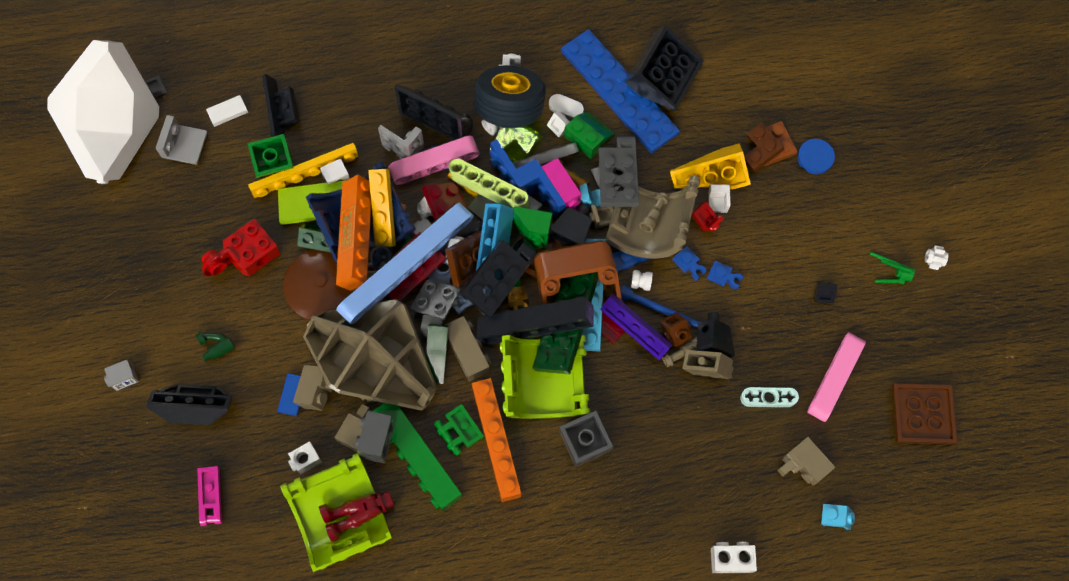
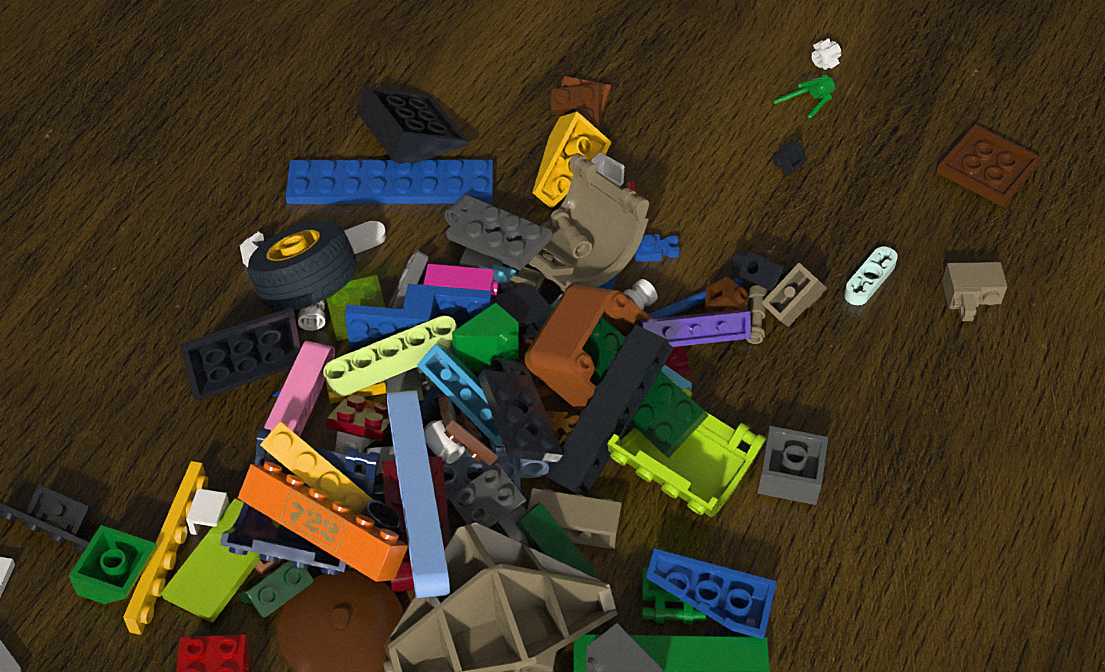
camera: 50 degrees left, 20 degrees down
(404, 148) = (240, 415): light grey bracket -> none
(468, 458) = (726, 595): none -> blue wedge
(496, 440) = (672, 536): orange brick -> none
(557, 123) = (376, 254): white tile -> none
(588, 133) = (415, 234): green slope -> none
(721, 274) = (691, 229): blue plate -> none
(734, 564) = (1042, 419): white brick -> none
(816, 156) = (629, 76): blue tile -> none
(836, 377) = (894, 206): bright pink beam -> none
(837, 516) = (1054, 300): medium azure bracket -> none

